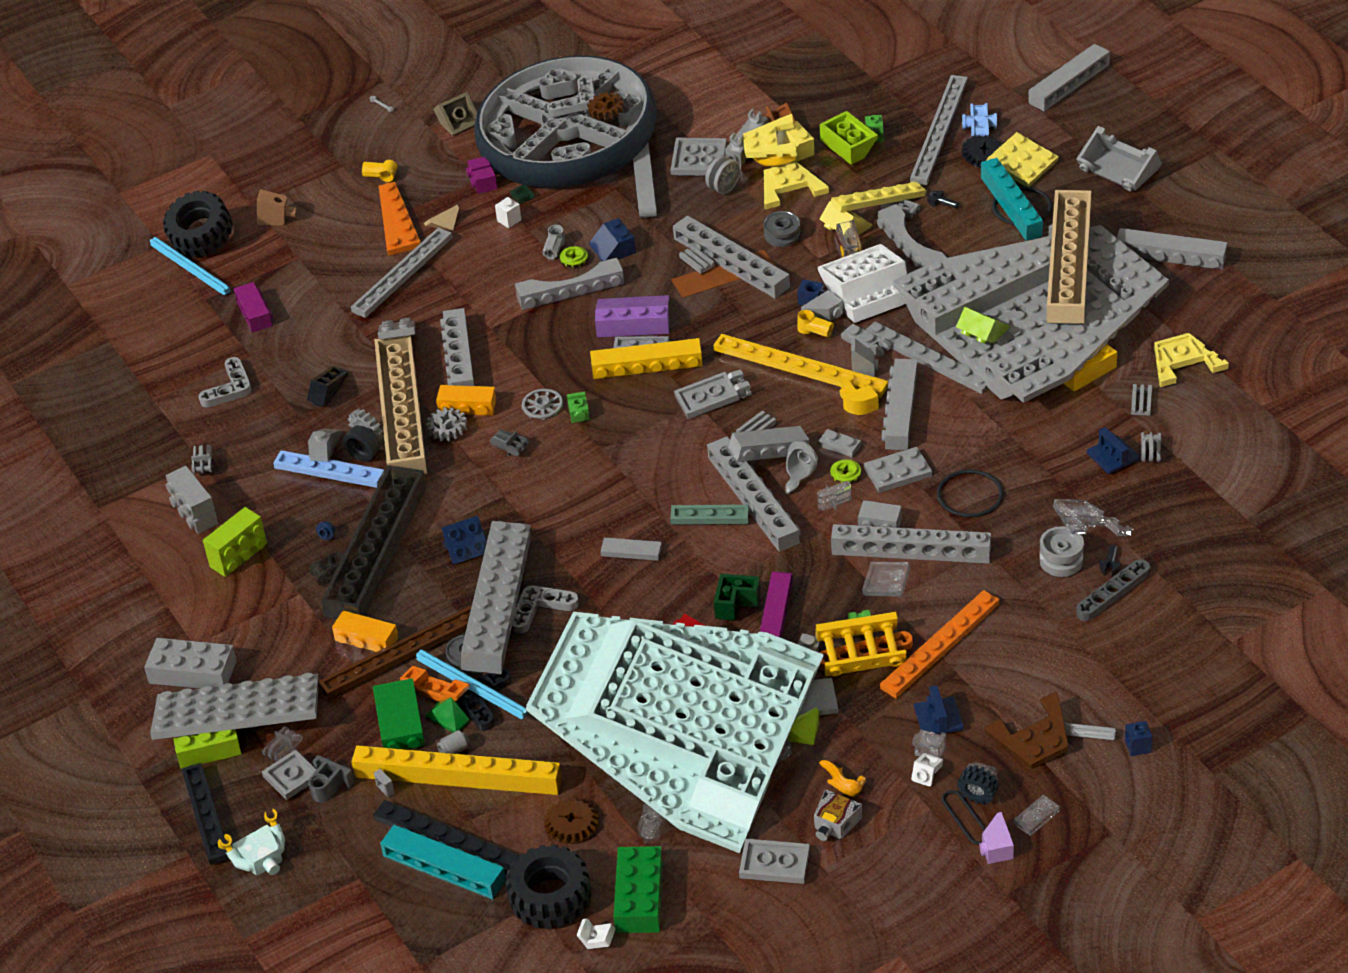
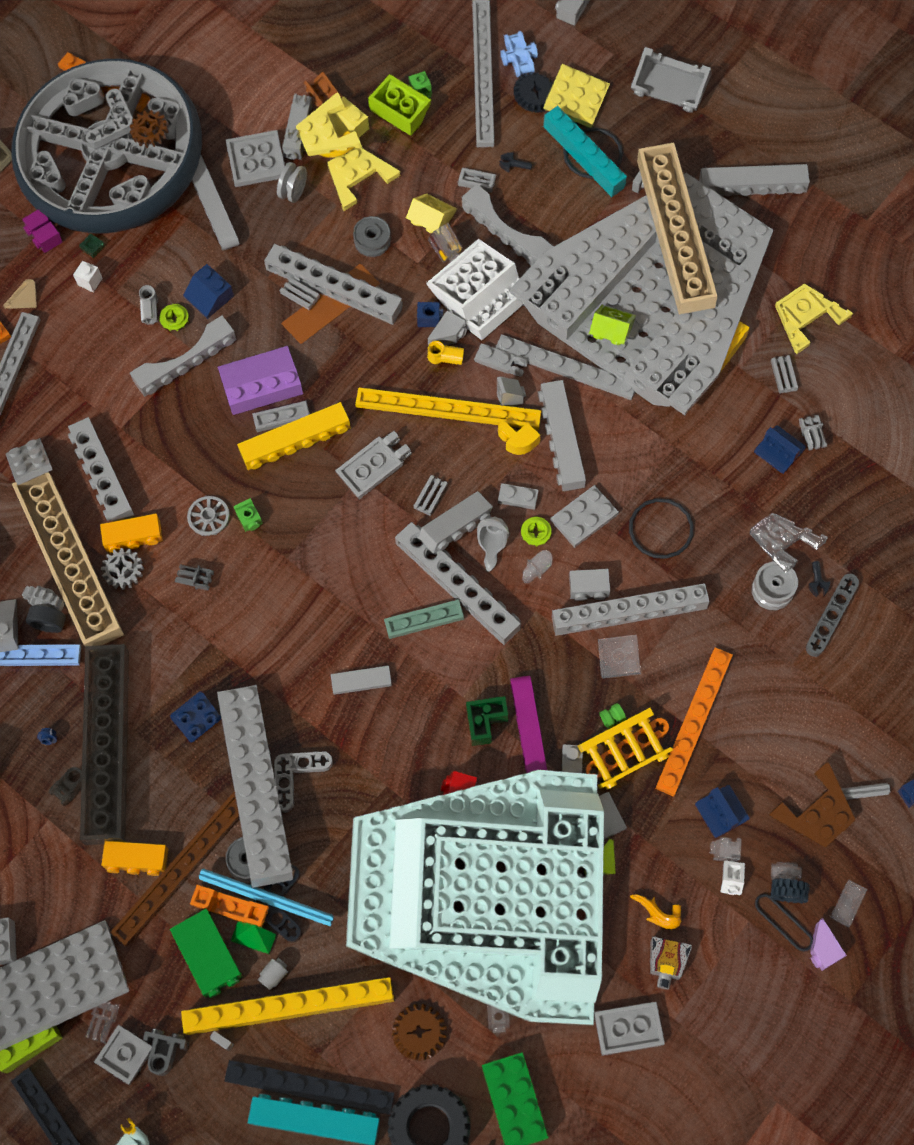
camera: 20 degrees left, 25 degrees up
(878, 196) = (455, 178): light yellow plate -> none

